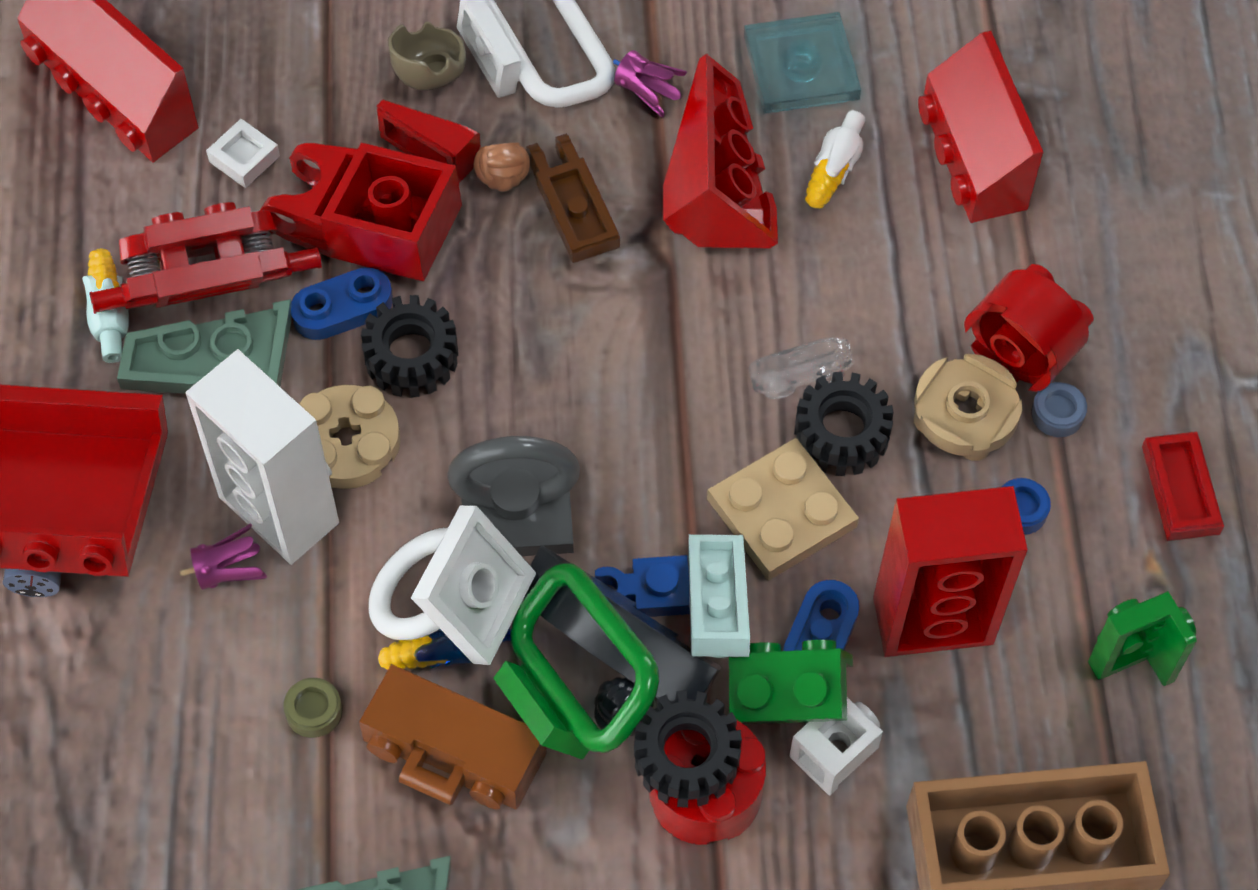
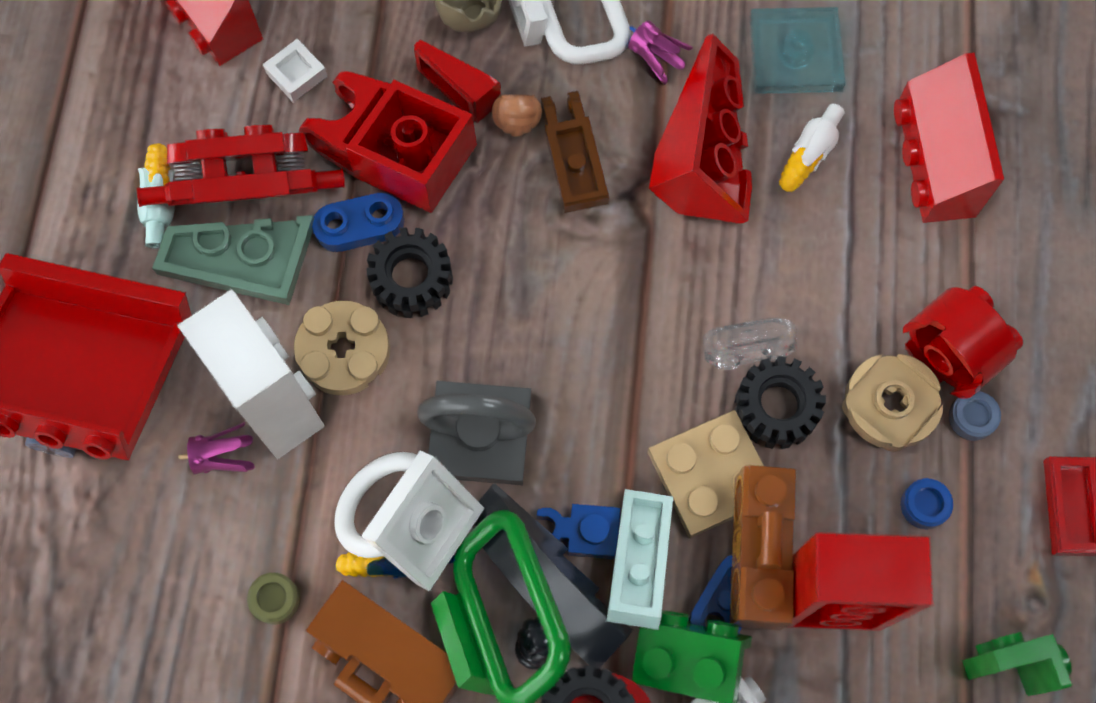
camera: 10 degrees right, 10 degrees up
(849, 561) = (763, 548): none -> dark orange piece

